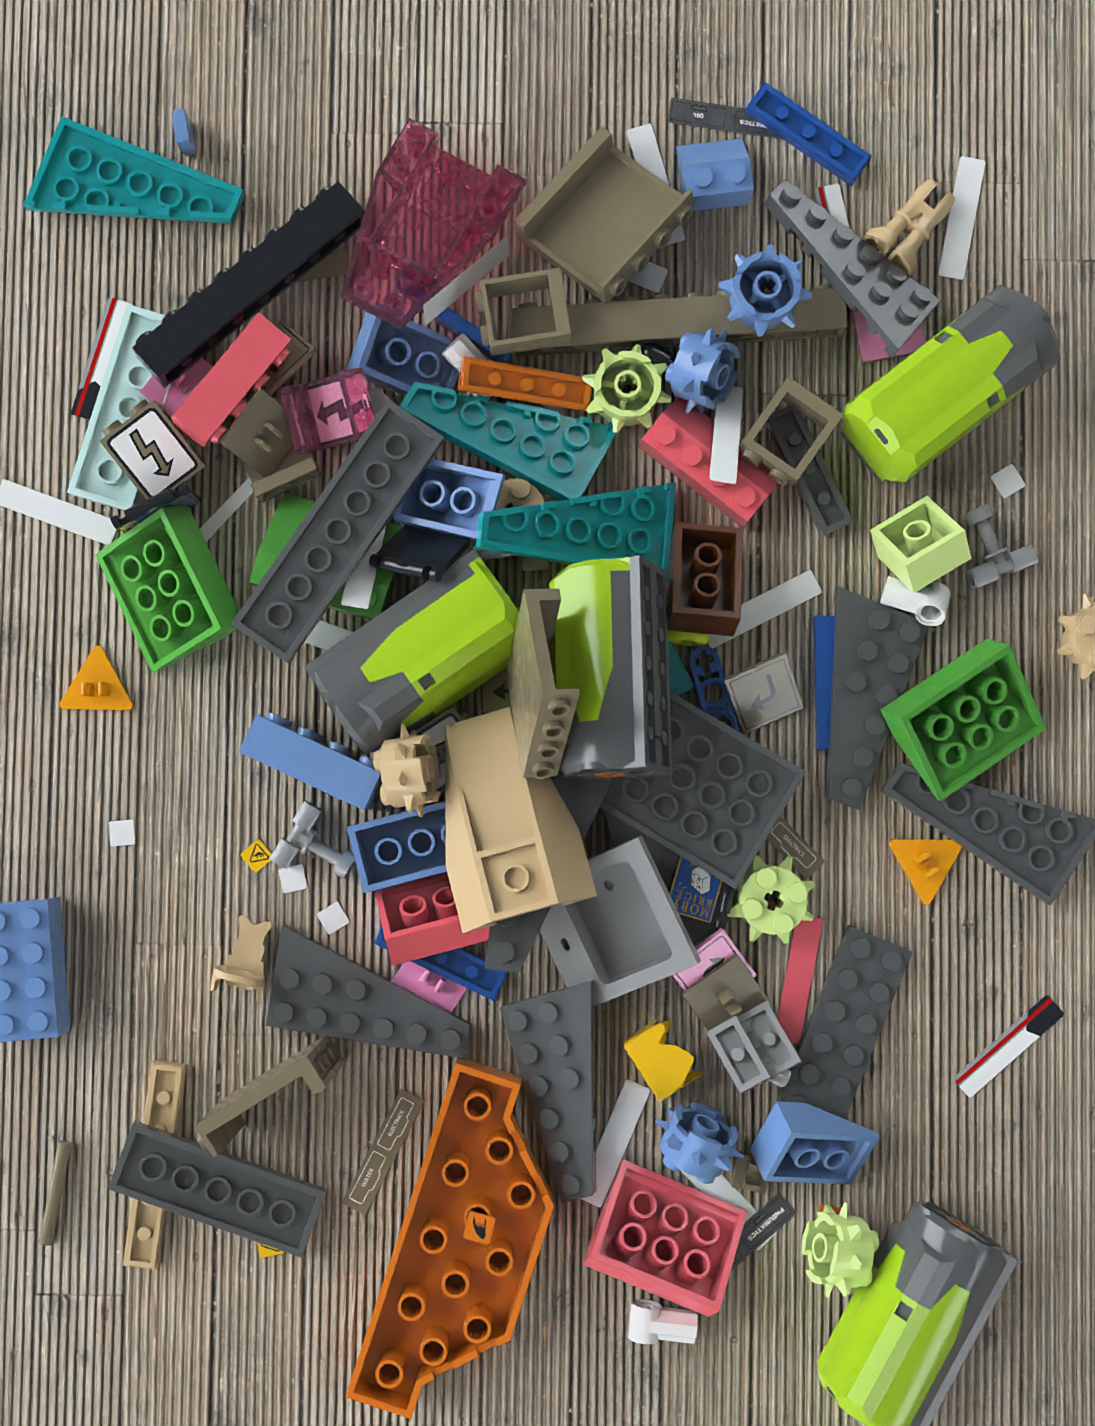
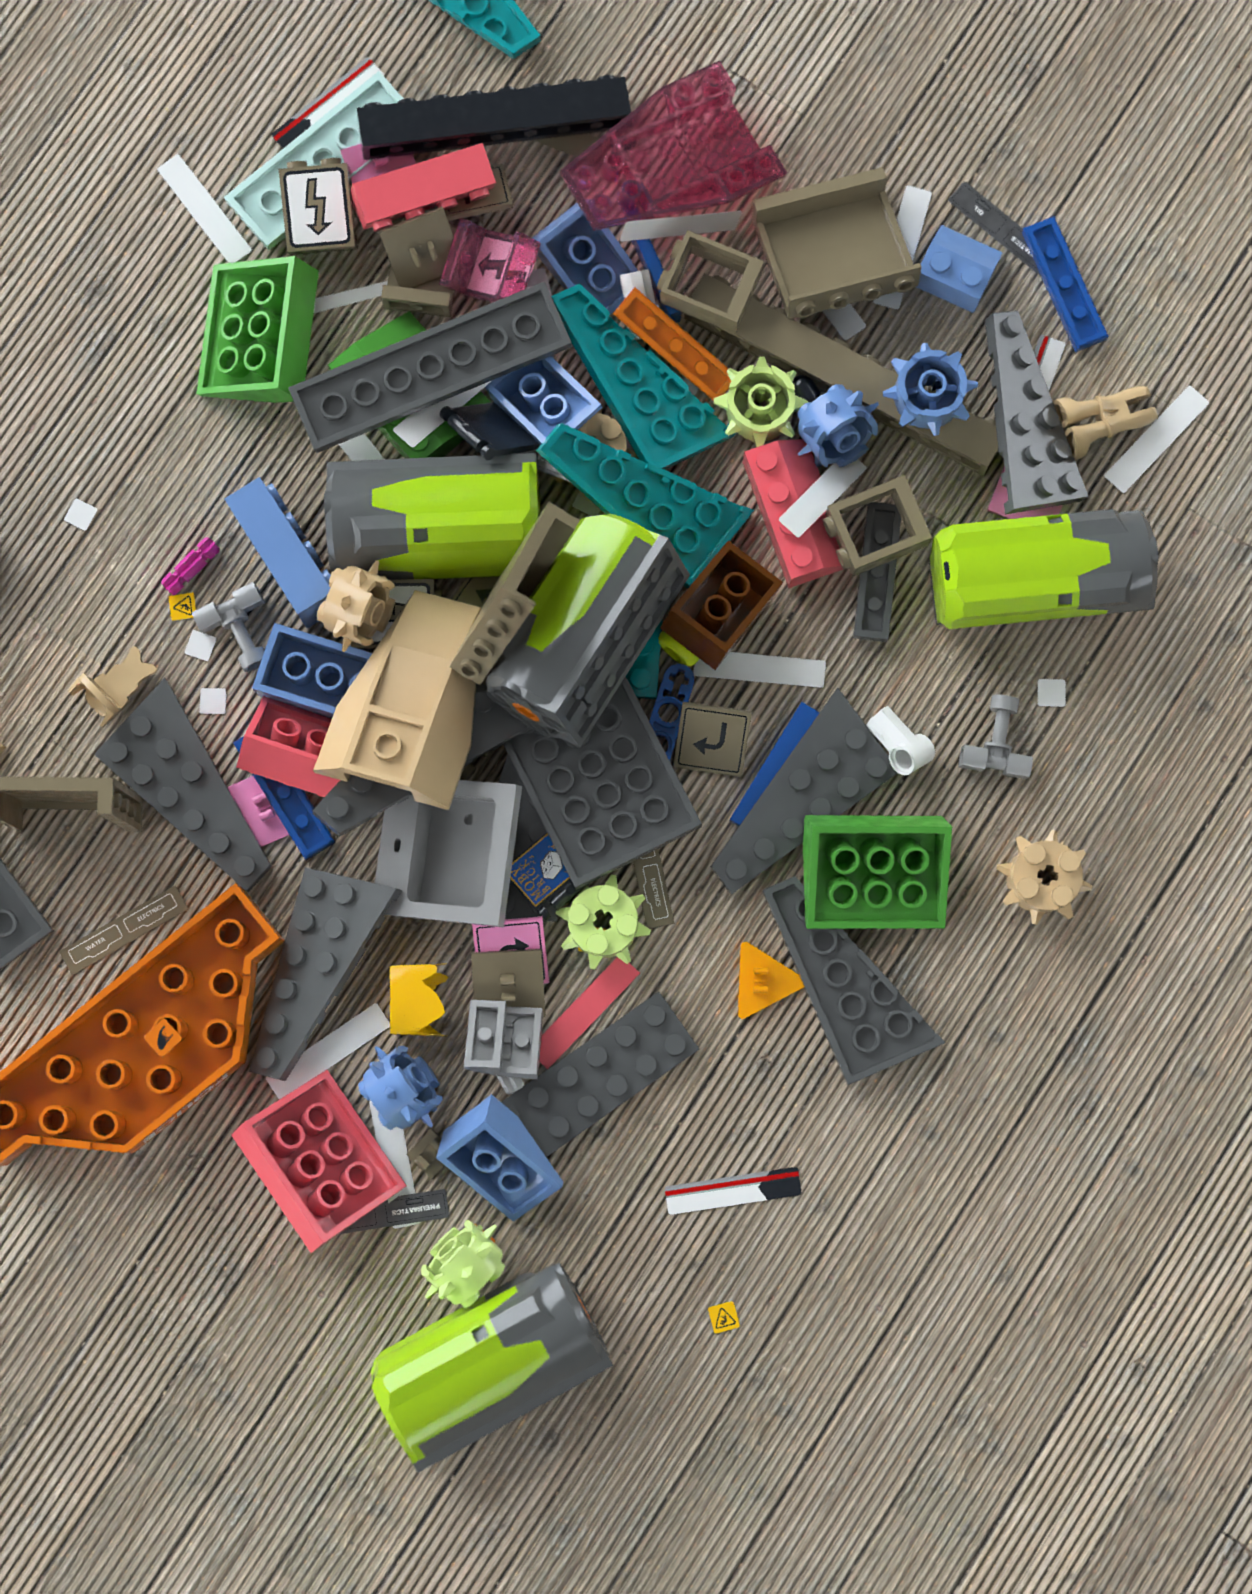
camera: 35 degrees right, 5 degrees down
(96, 686) = (141, 377): light orange piece -> none
(167, 498) = (276, 249): black piece -> none
(241, 819) = (190, 566): none -> dark pink axle
(653, 1323) = (259, 1227): white piece -> none
(921, 544) = (931, 693): yellowish green brick -> none
(1064, 1151) = (723, 1317): none -> yellow sticker

